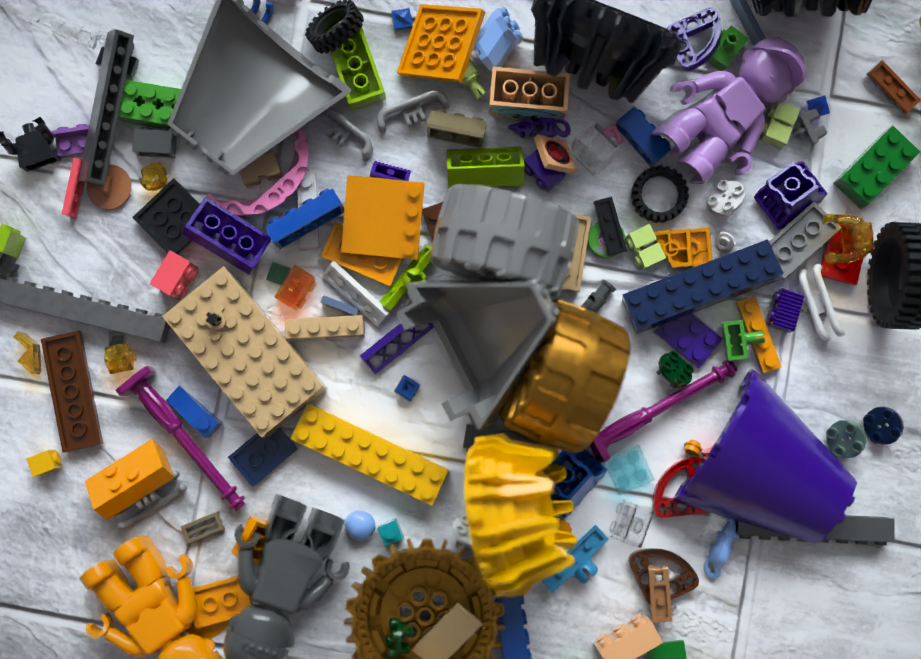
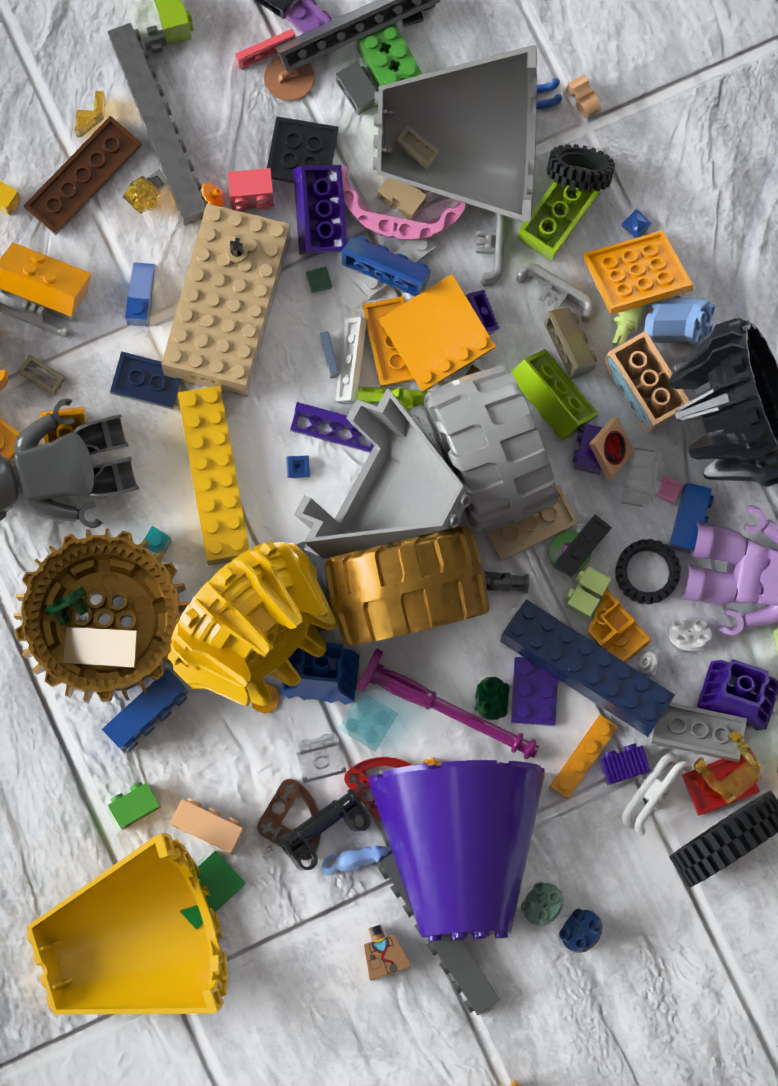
camera: 55 degrees right, 5 degrees down
(154, 176) = (326, 109): clear yellow hair -> none
(157, 306) = (212, 194): none -> light orange piece
(164, 415) = (120, 265): magenta piece -> none
(233, 131) = (417, 147): none -> dark tan plate
(296, 288) = (317, 303): clear orange brick -> none
(324, 327) = (299, 354): tan brick -> none
(359, 525) = (142, 512): light blue hair -> none
(542, 127) = (628, 419): dark purple animal -> none
(582, 553) = (248, 730): dark azure plate -> none
(659, 594) = (272, 826): medium nougat plate -> none
(684, 585) = (319, 823): none -> black piece
(736, 340) = (561, 736): bright green brick -> none
(804, 577) = (384, 954): none -> medium nougat torso

